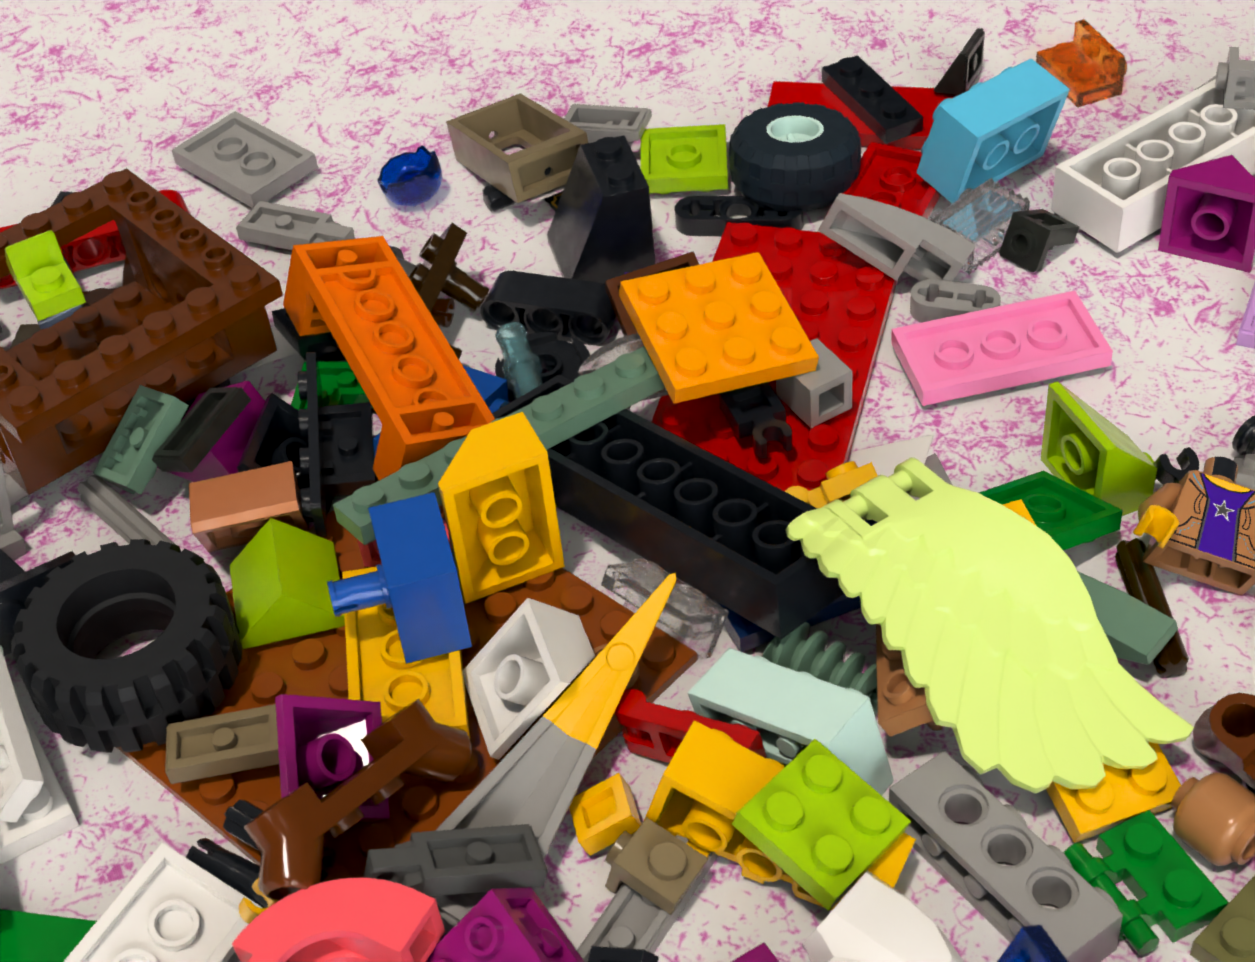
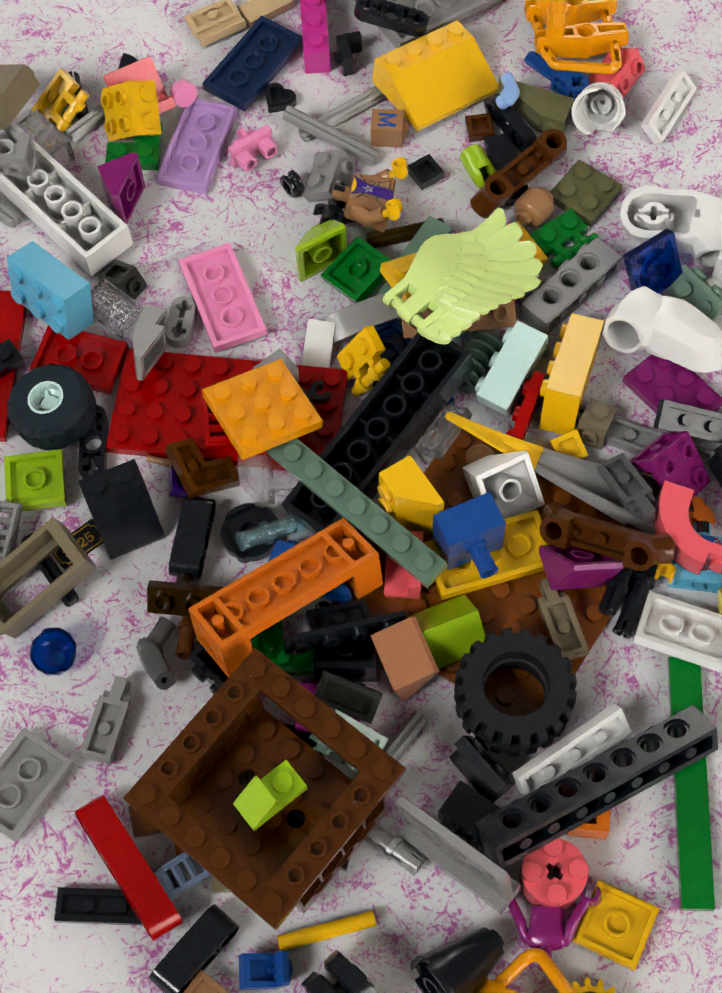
camera: 100 degrees left, 20 degrees up
(821, 823) = (583, 339): lime plate -> none

